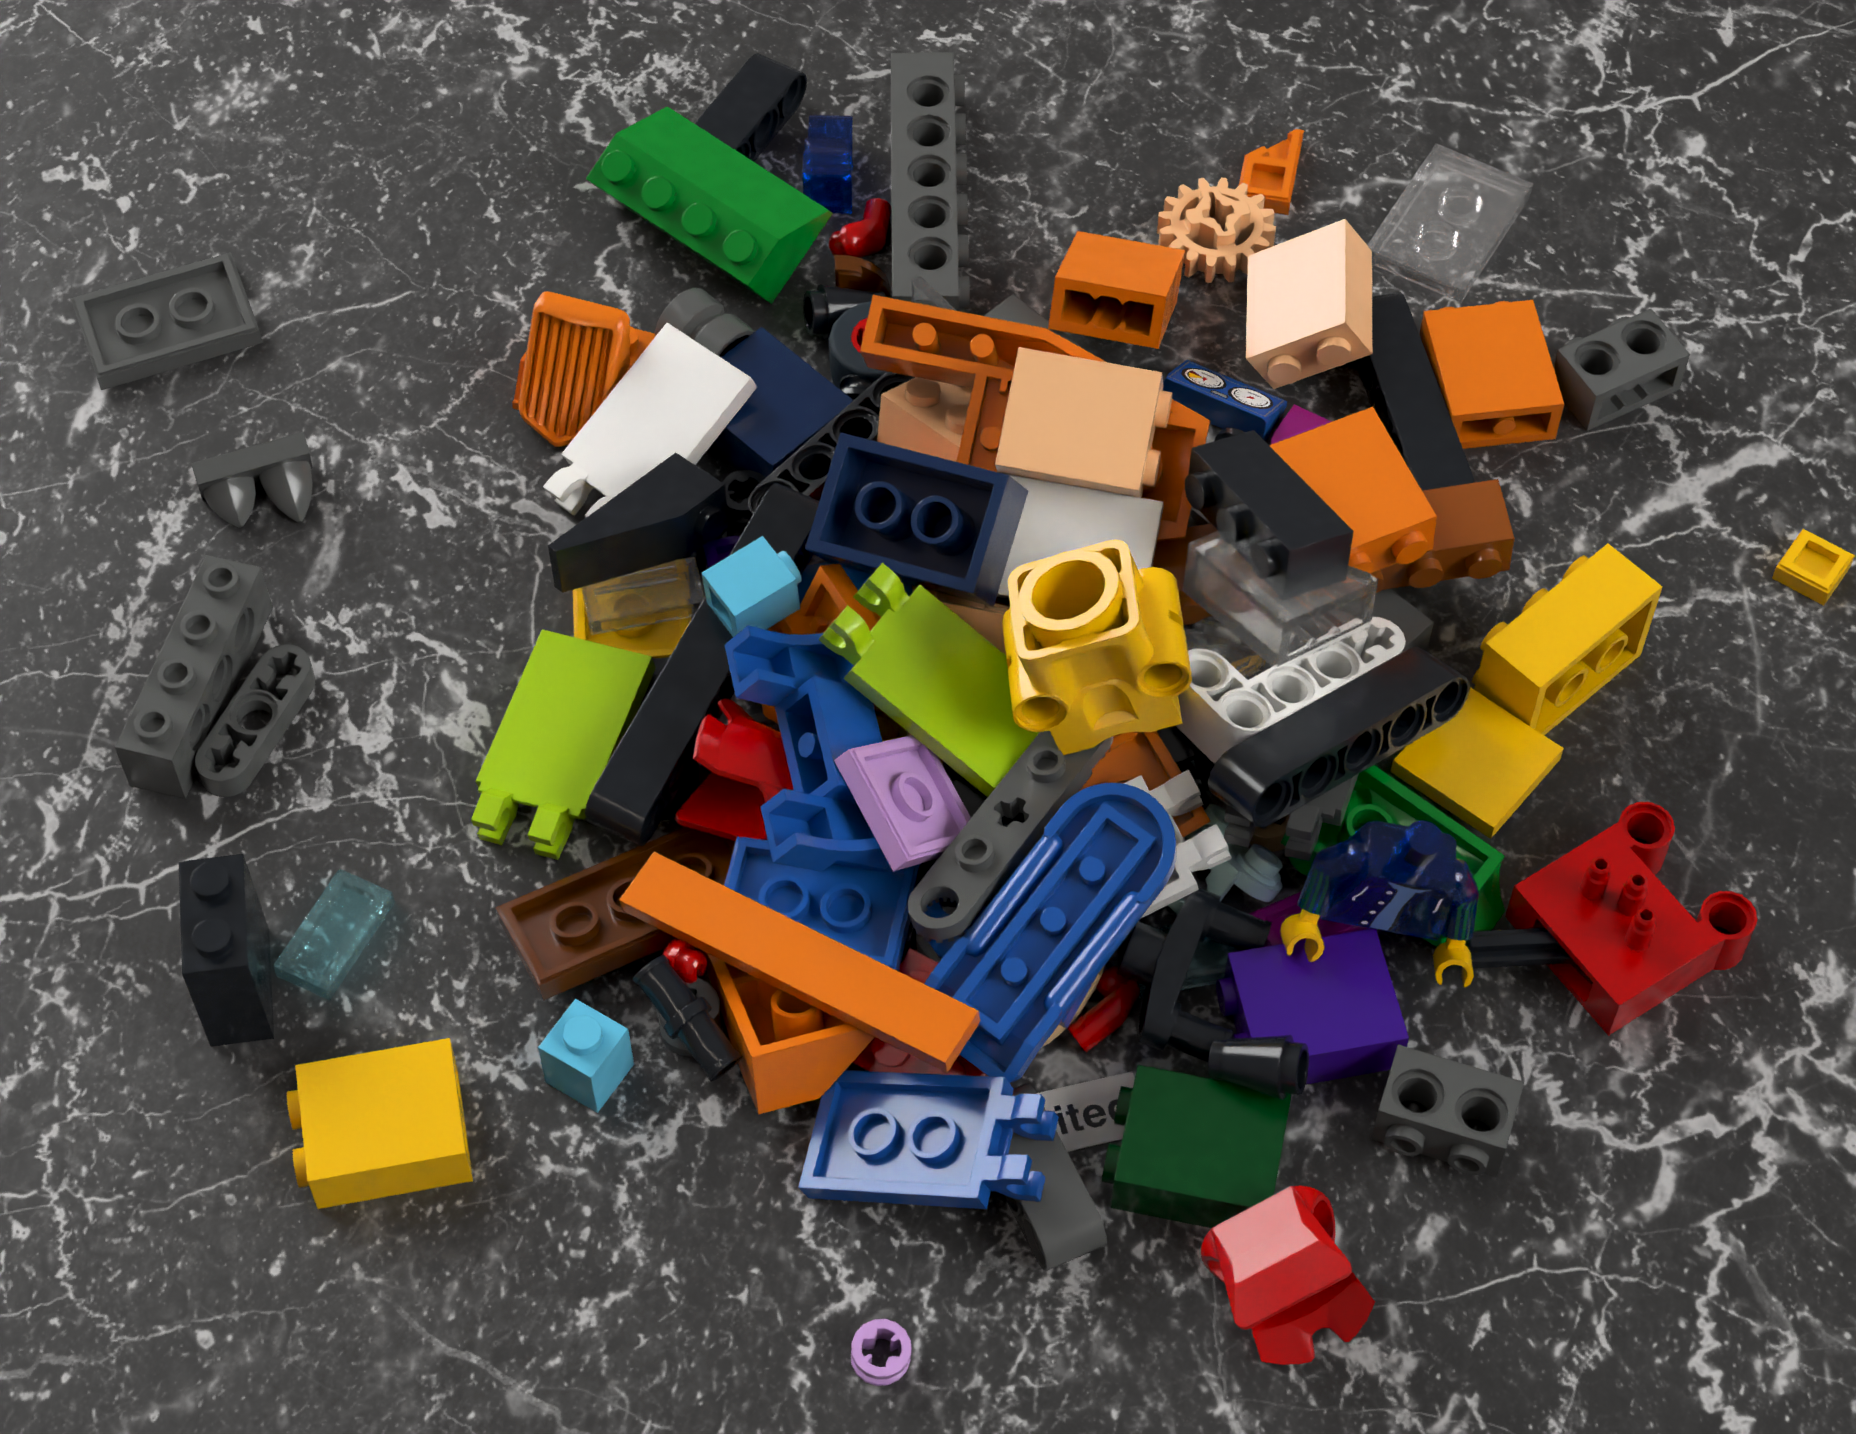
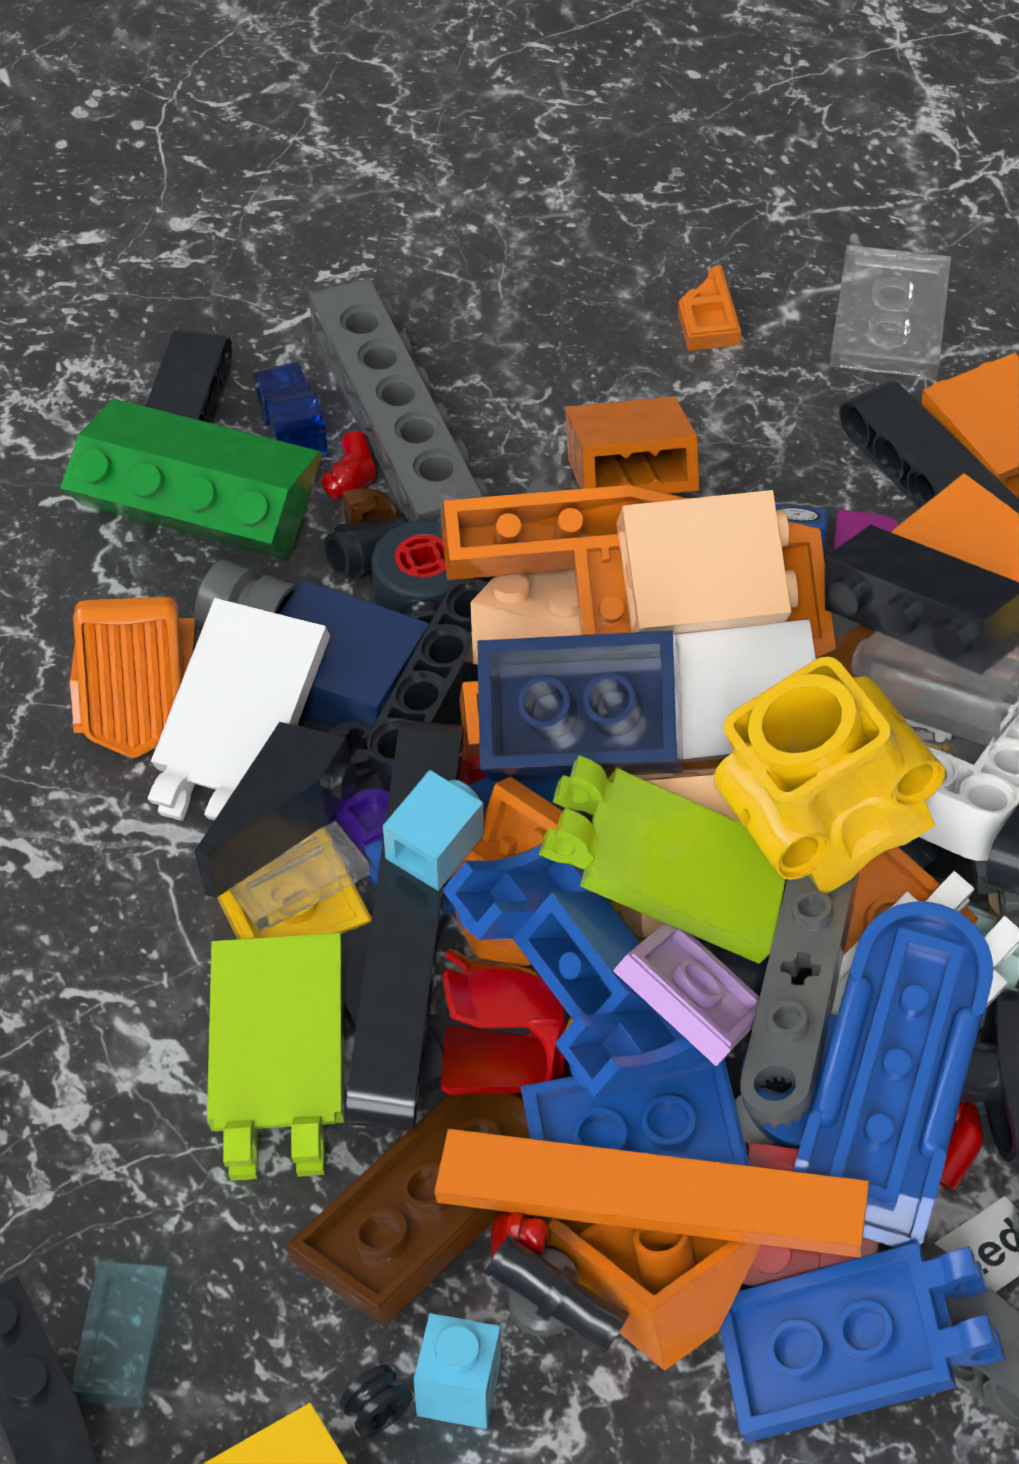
camera: 20 degrees left, 5 degrees down
(511, 1056) = (375, 1400): none -> black bush
(1216, 228) = (690, 370): light nougat gear -> none
(1309, 304) = (816, 413): light nougat brick -> none

